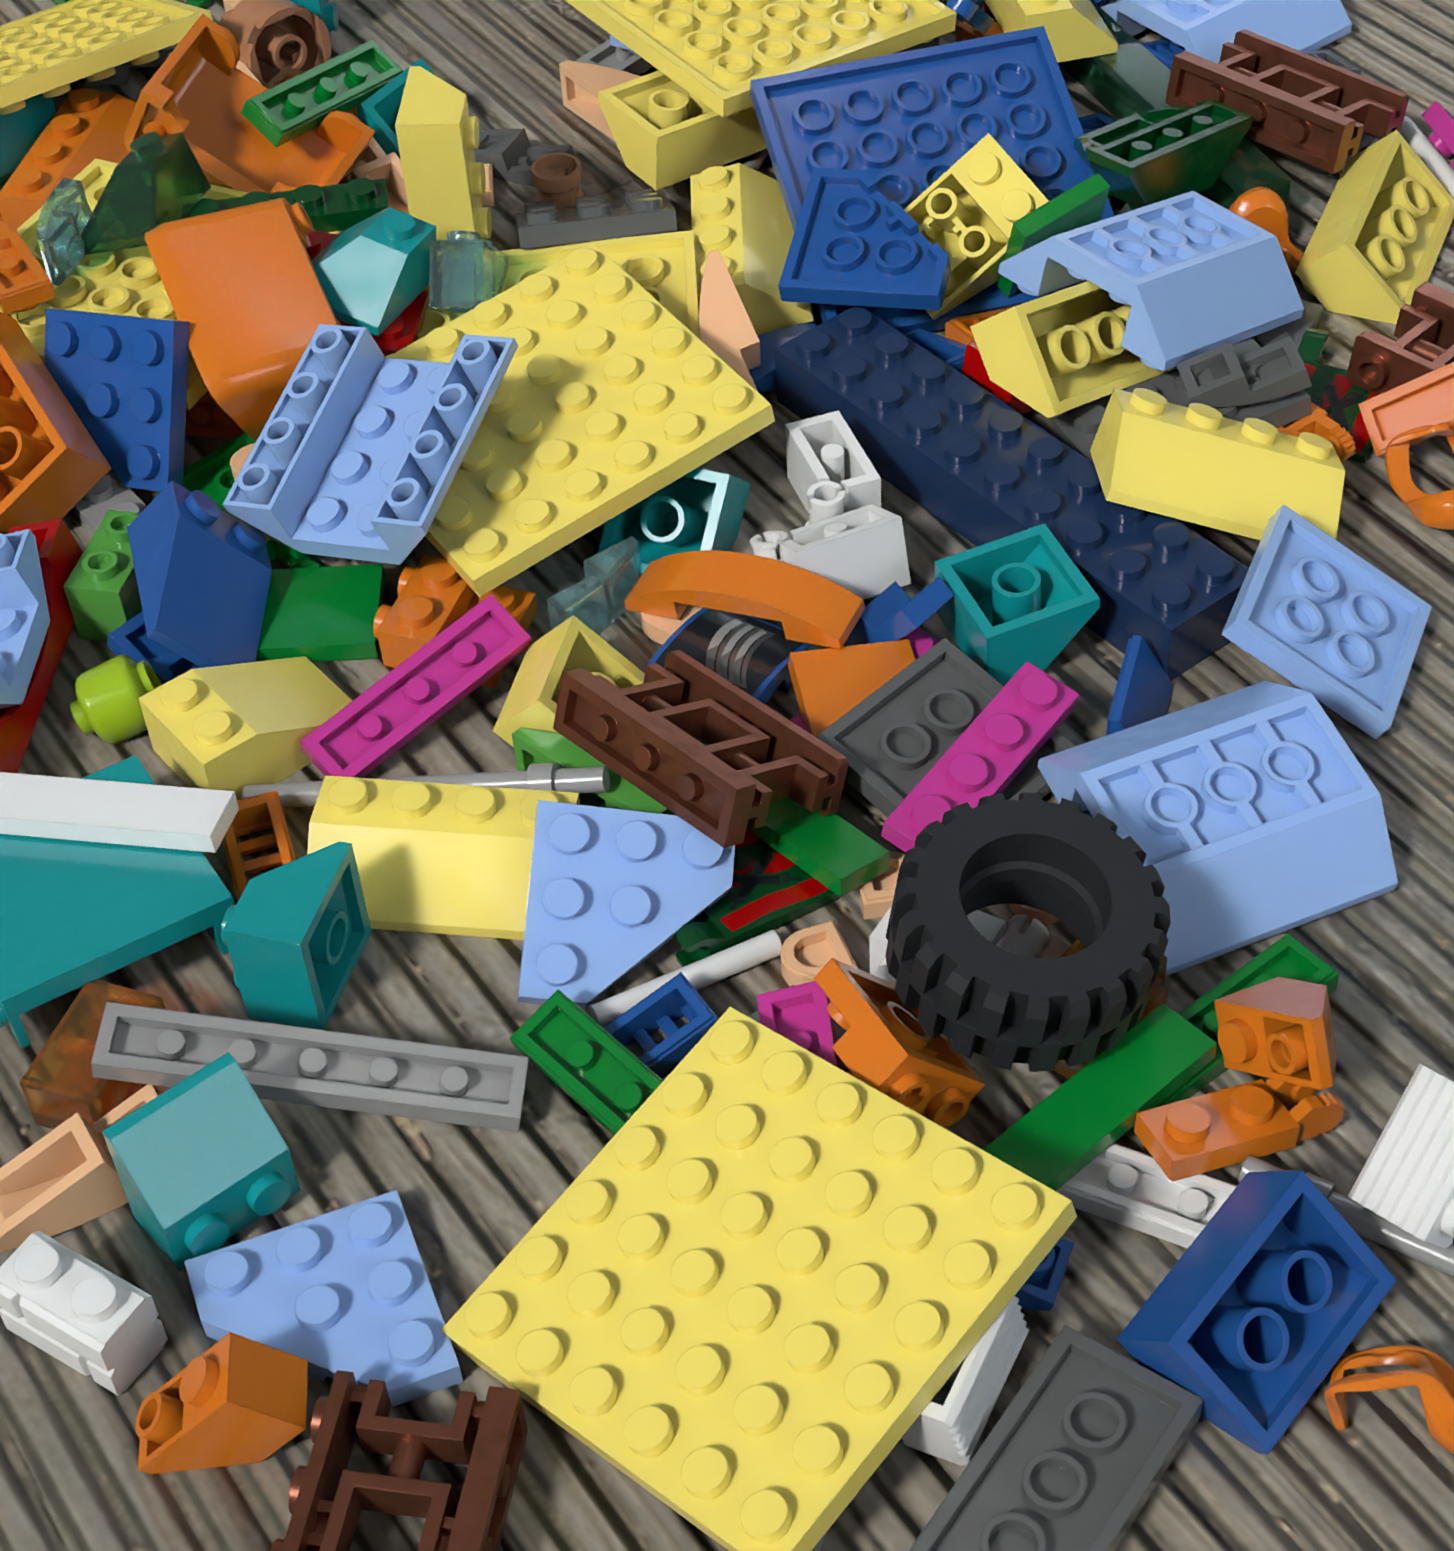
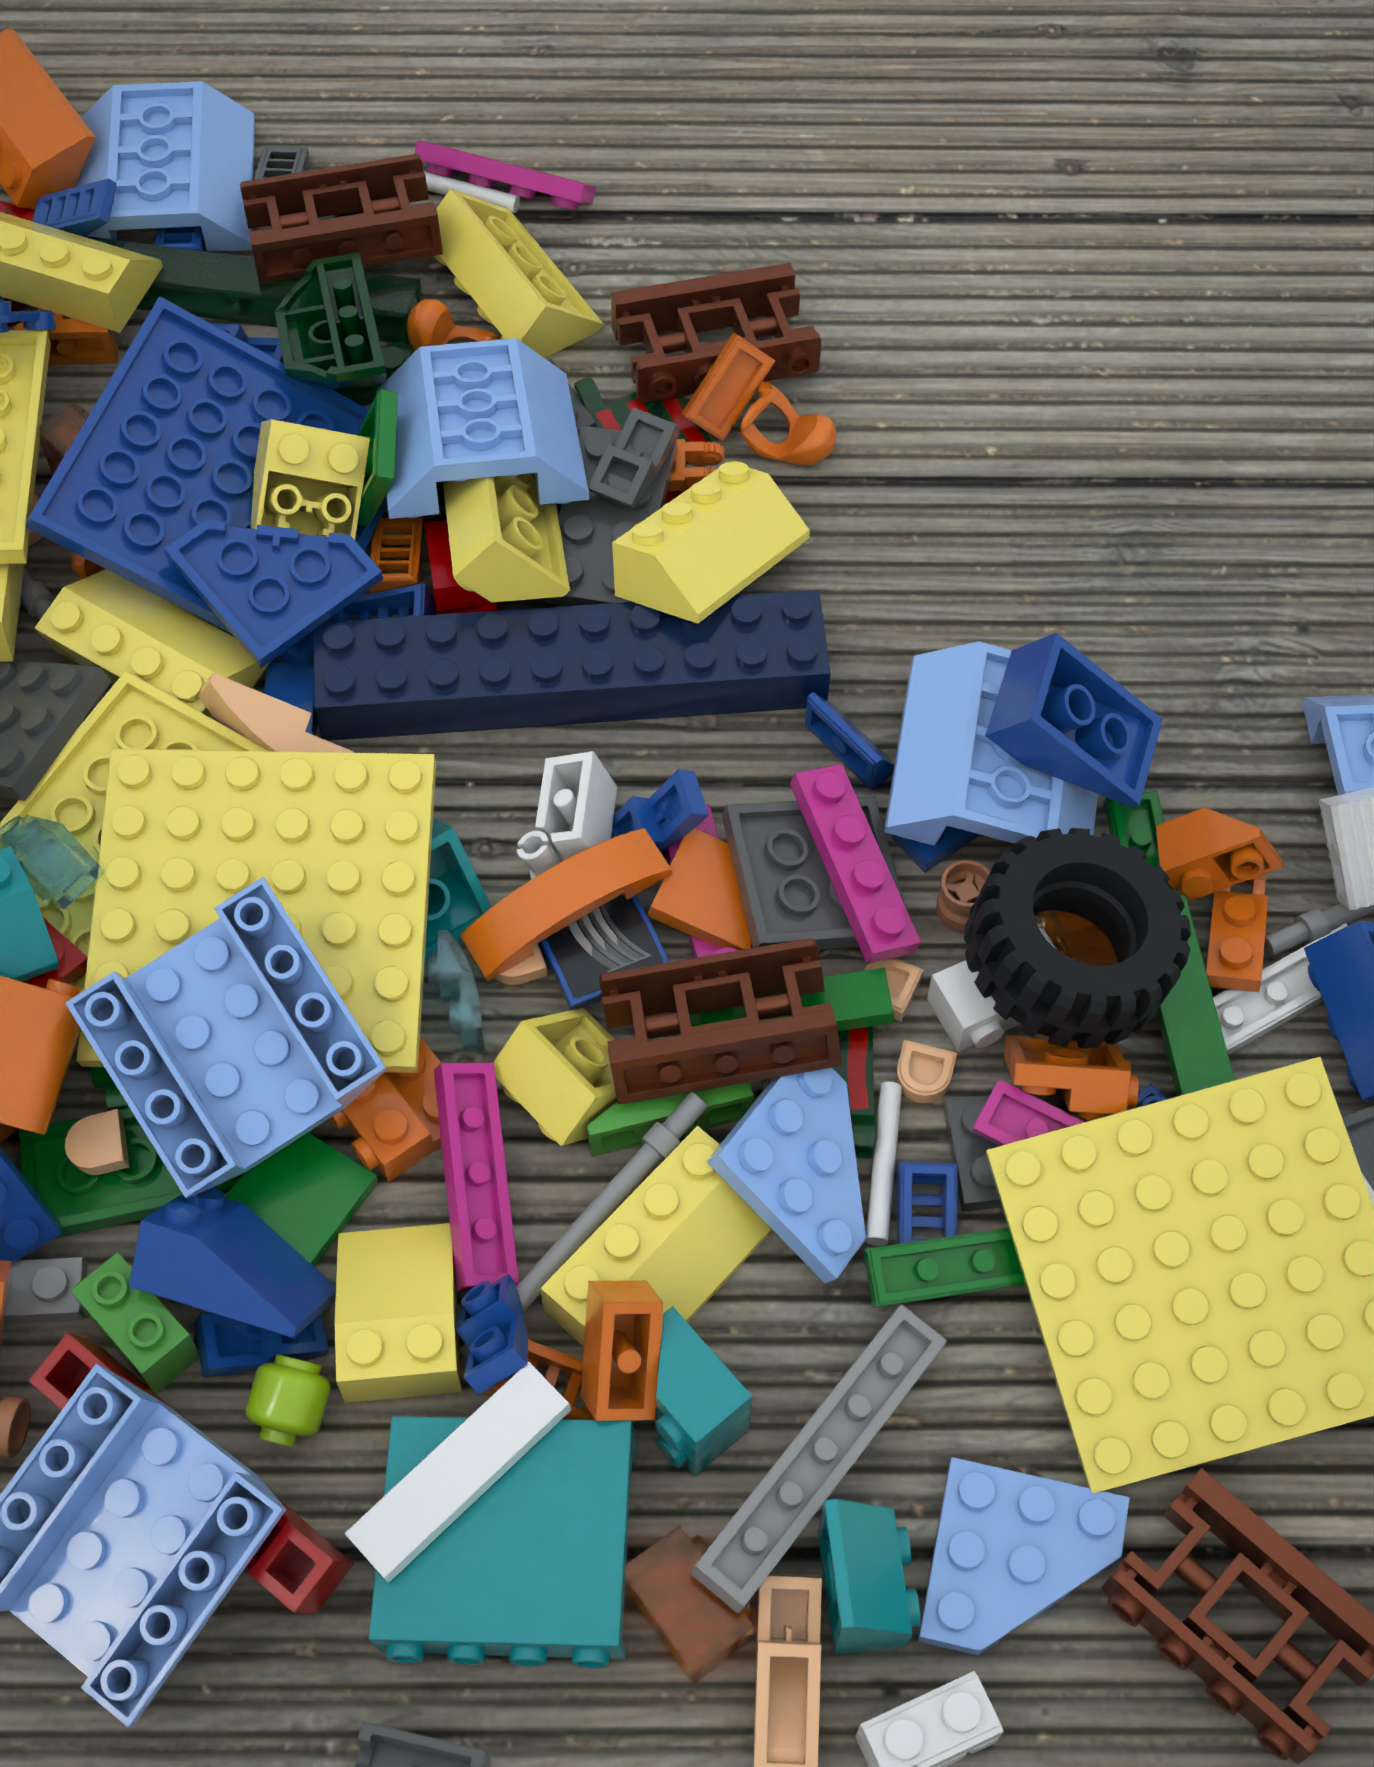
camera: 60 degrees left, 15 degrees up
(224, 1409) = (1075, 1676): orange slope -> none
(262, 770) = (495, 1332): none -> blue slope
(296, 822) = (621, 1350): none -> orange brick
(829, 467) = (487, 767): white hinge -> none
(1015, 601) = (718, 734): teal slope -> none
(1294, 810) = (1074, 721): none -> blue slope
(1328, 621) = (882, 583): light blue plate -> none

